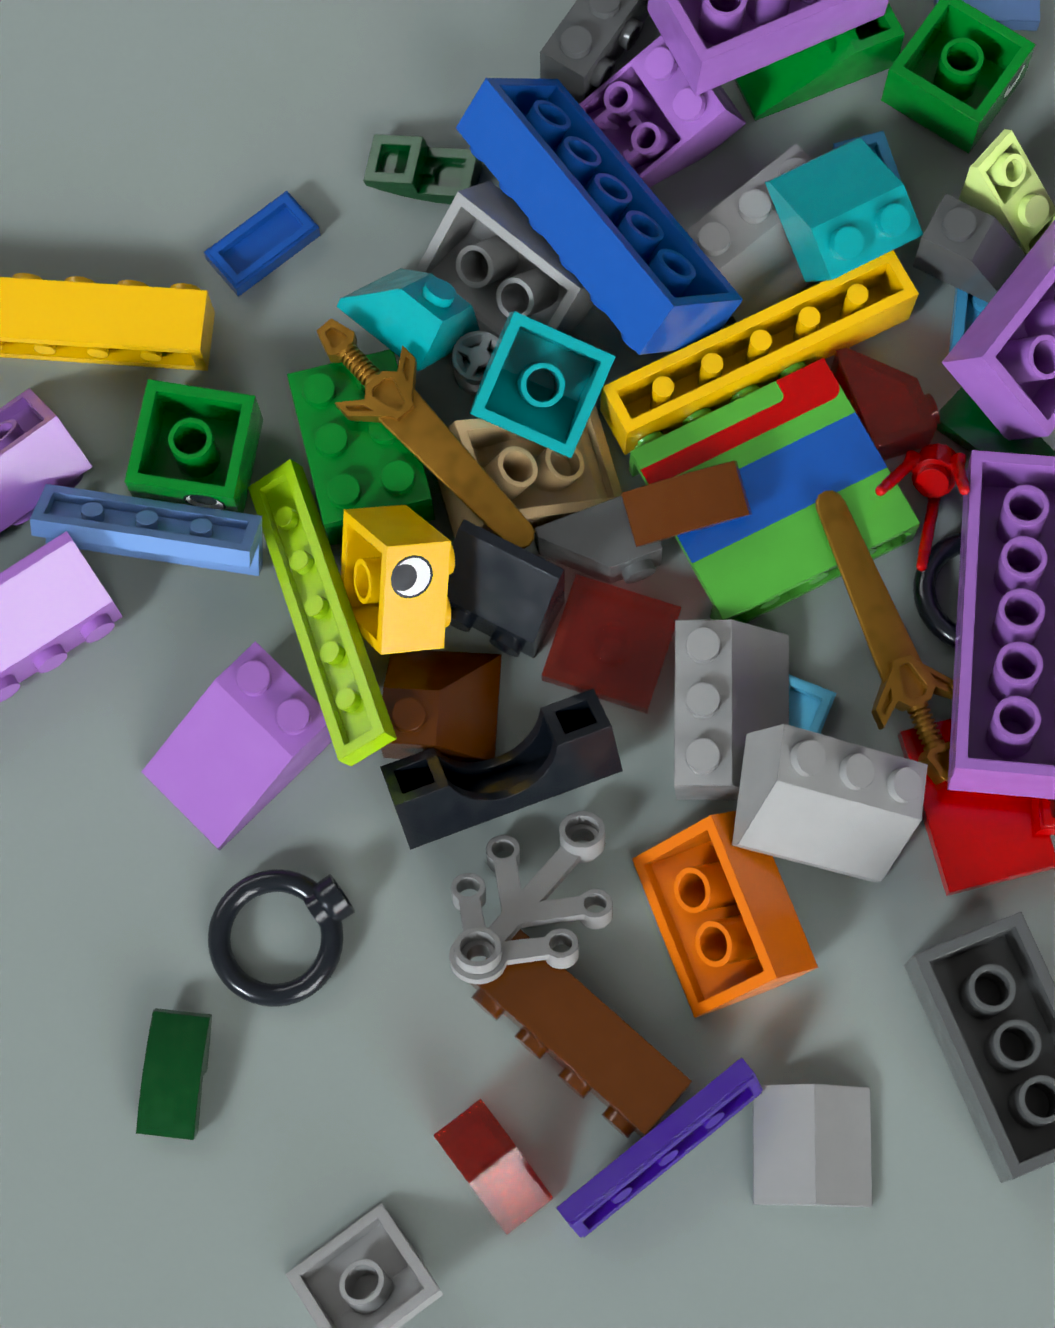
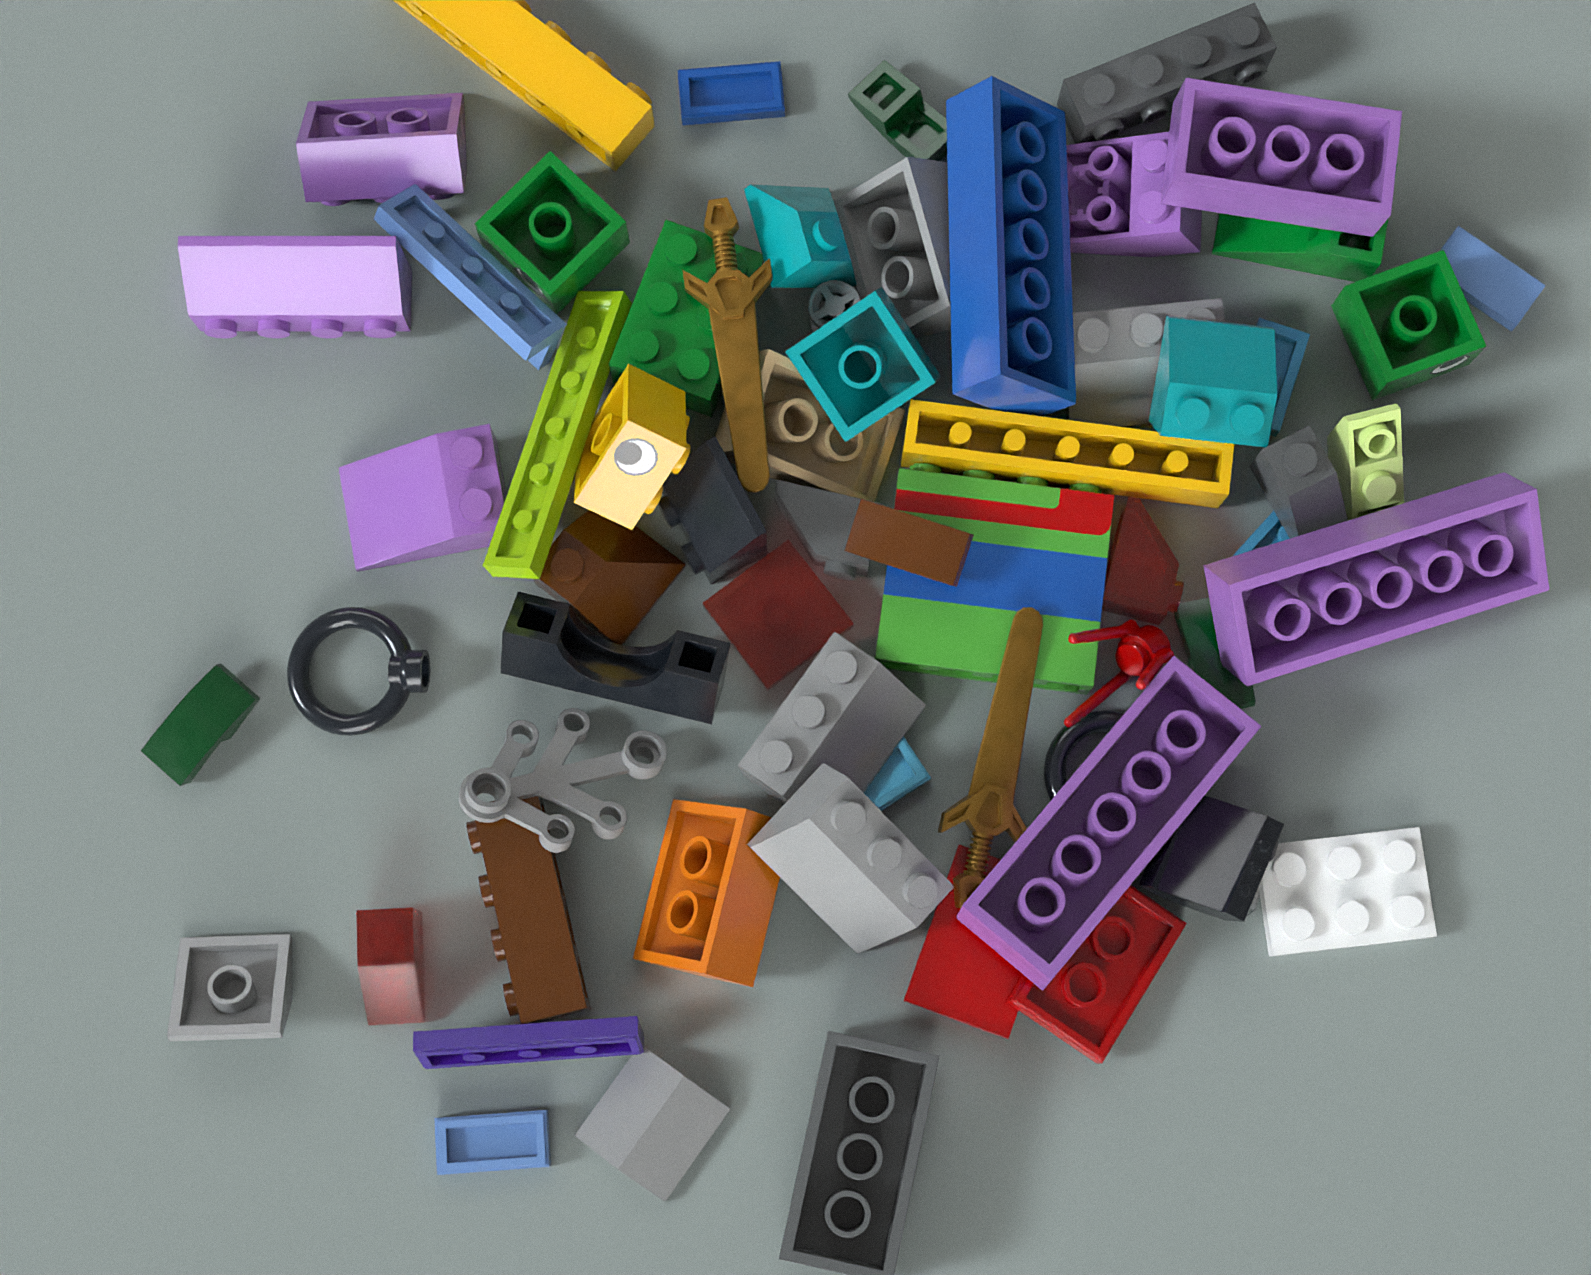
camera: 30 degrees right, 5 degrees up
(687, 1260) = (492, 1142): none -> medium blue tile

